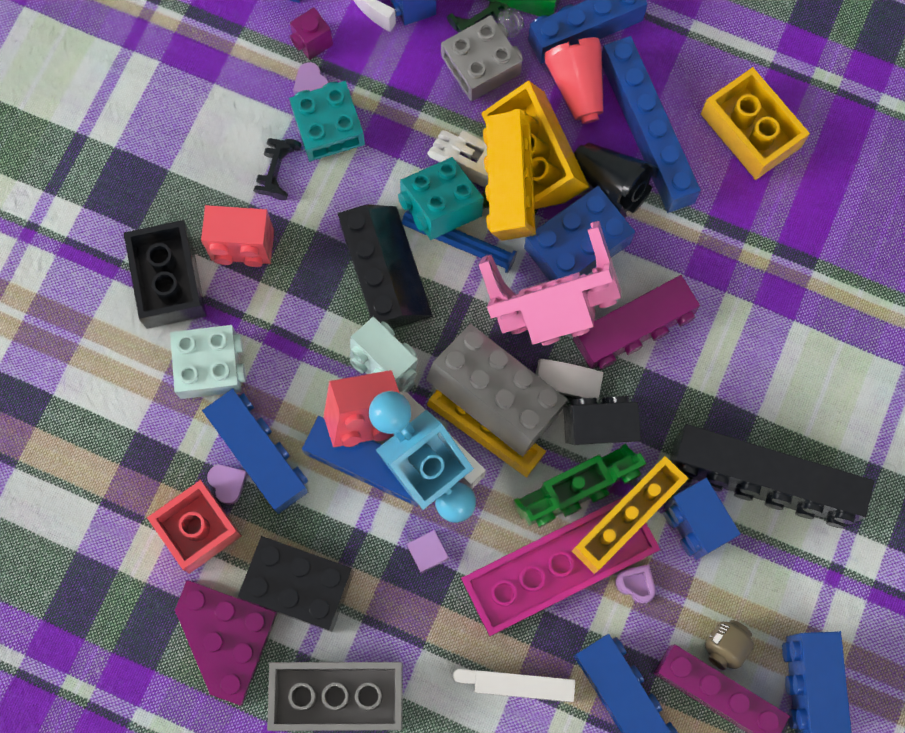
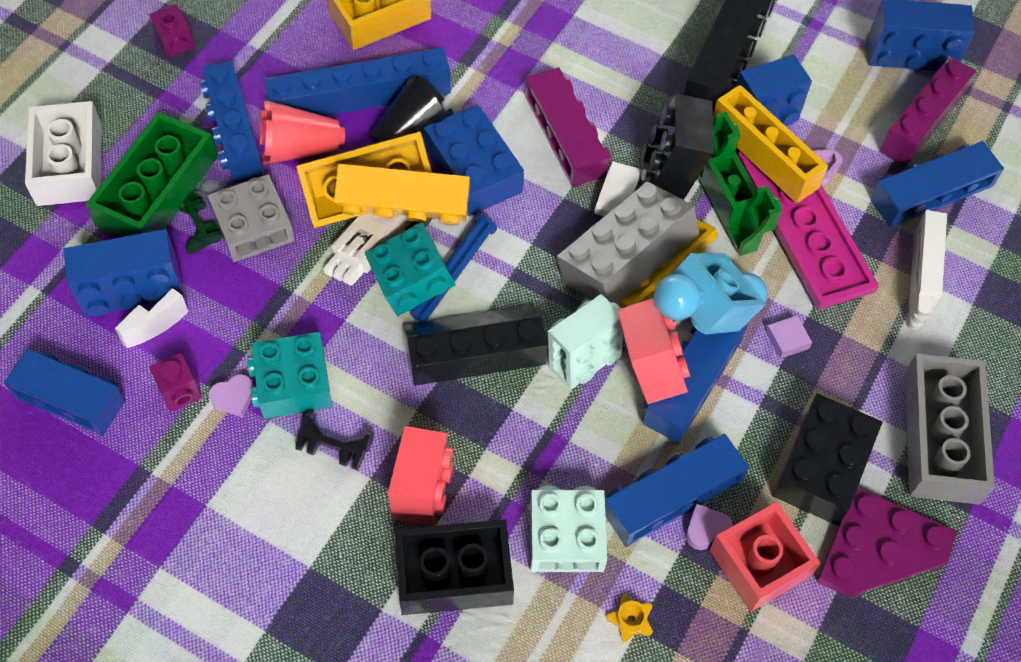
camera: 85 degrees left, 15 degrees down
(135, 422) = (635, 609): none -> yellow plate
(557, 305) = (555, 163): bright pink piece -> none
(729, 645) = (882, 98): dark tan head -> none

